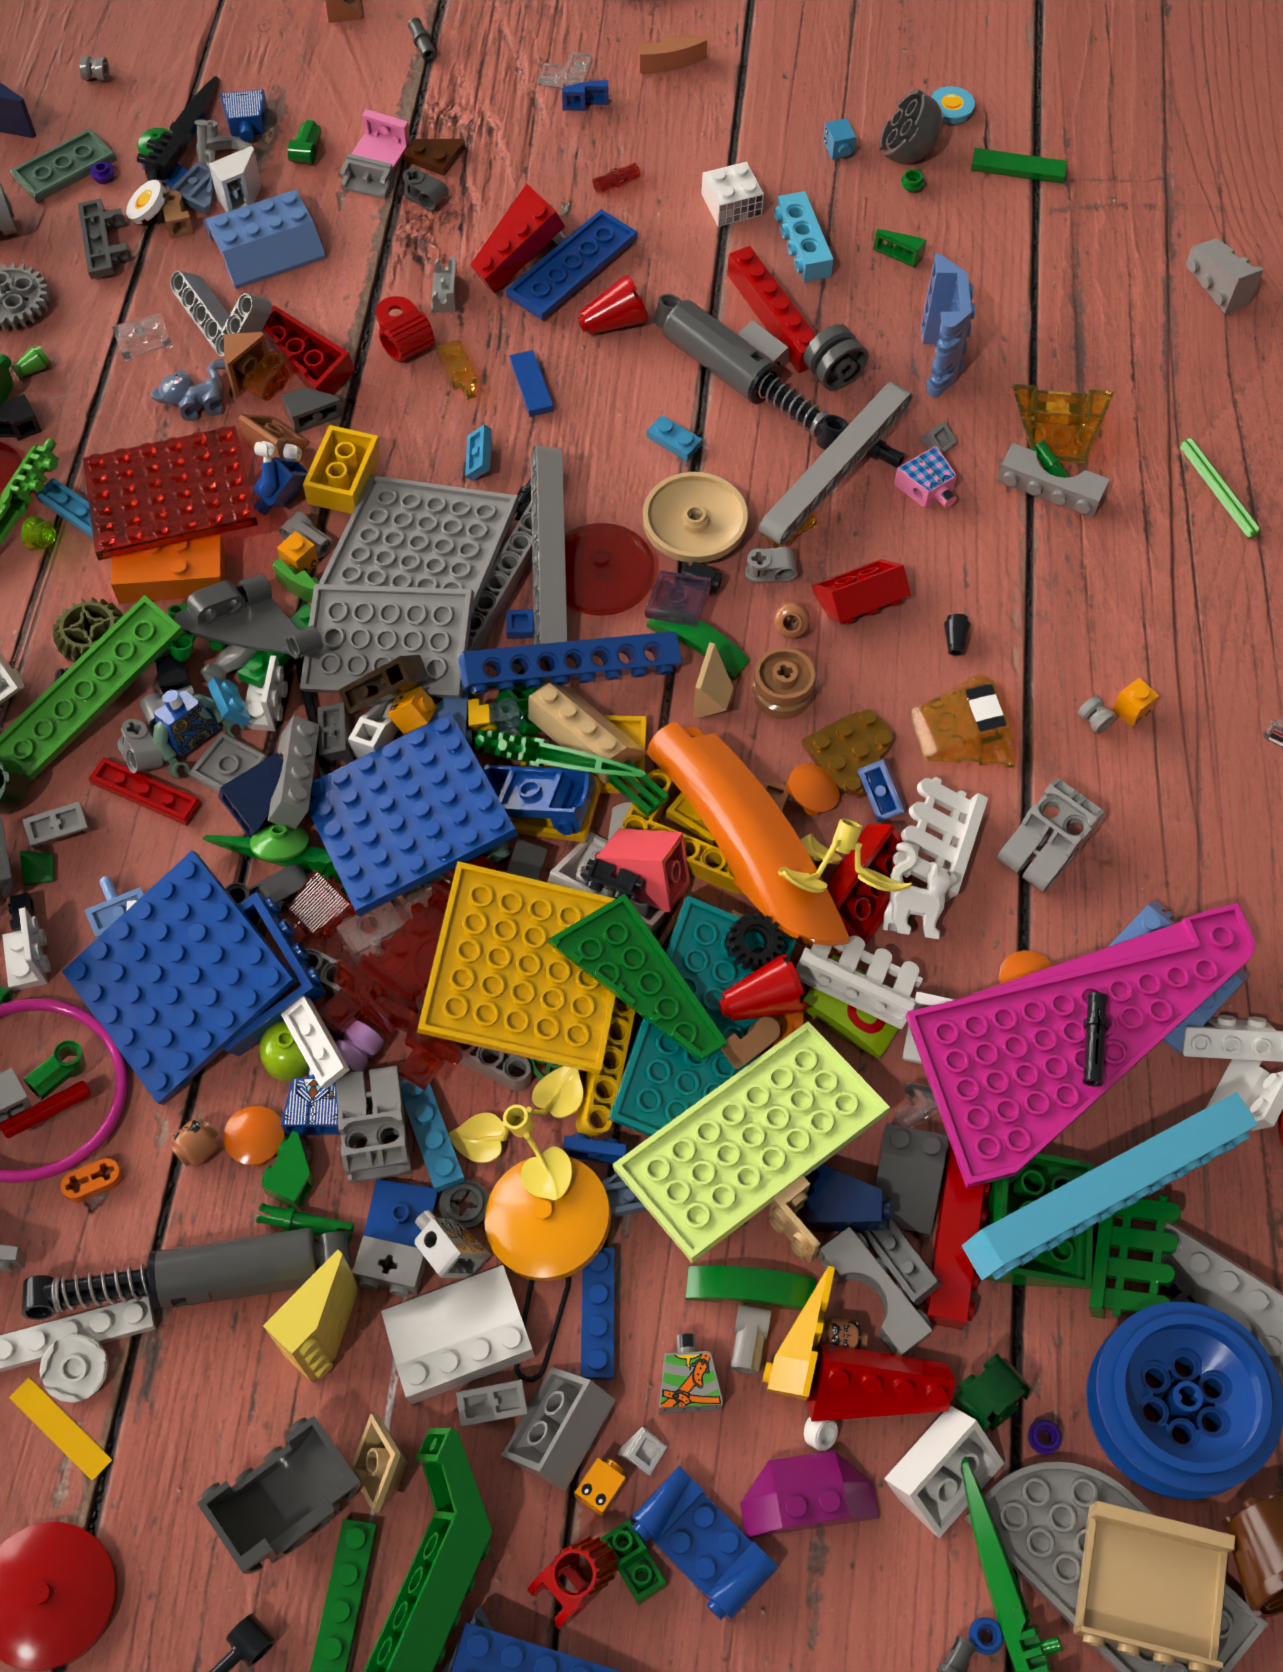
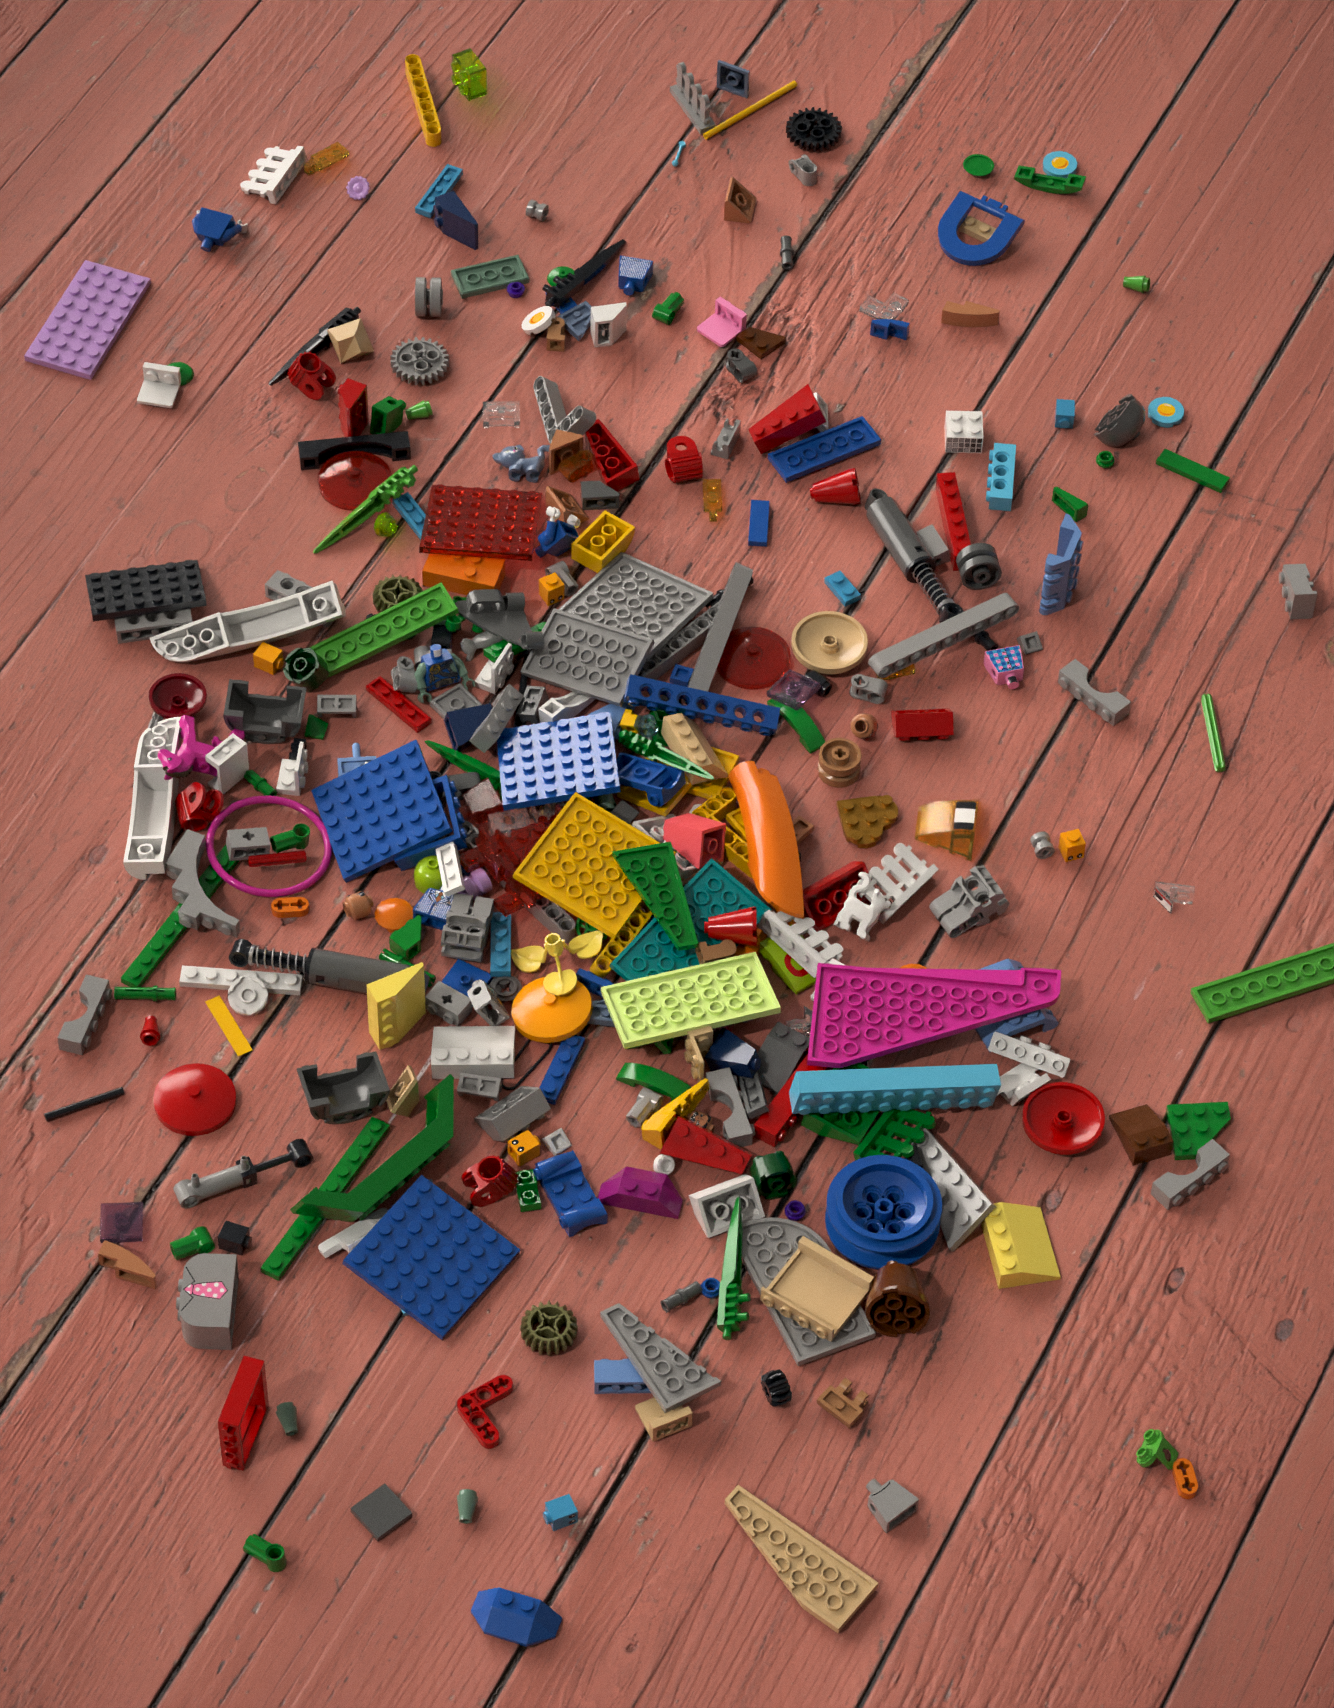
camera: 20 degrees right, 10 degrees down
(99, 253) = (493, 346): dark grey hinge -> none
(211, 141) = (601, 287): light grey piece -> none
(229, 701) = (471, 665): dark azure plate -> none
(266, 238) = (613, 369): medium blue slope -> none
(279, 842) = (471, 757): bright green dish -> none
(298, 584) = (542, 605): bright green slope -> none
(367, 176) = (703, 345): light grey hinge -> none
(384, 683) = (575, 681): dark brown slope -> none
(412, 710) = (586, 703): light orange brick -> none
(478, 452) = (700, 559): dark azure plate -> none
(601, 877) = (662, 832): black hinge -> none
(616, 177) = (885, 396): clear red pin -> none
(632, 797) = (699, 784): green tile -> none
(689, 1380) = (597, 1115): torso -> none
(713, 685) = (788, 748): tan slope -> none
(769, 934) = (741, 886): black tyre -> none
(813, 788) = (828, 830): orange dish -> none
(843, 841) = (822, 856): light yellow plant -> none
(882, 790) = (873, 844): blue slope -> none
(956, 633) = (974, 768): black cone -> none
(1049, 460) = (1097, 677): green axle -> none
(1062, 418) = (1118, 656): clear yellow wedge -> none
(1095, 1039) = (928, 1004): black pin -> none

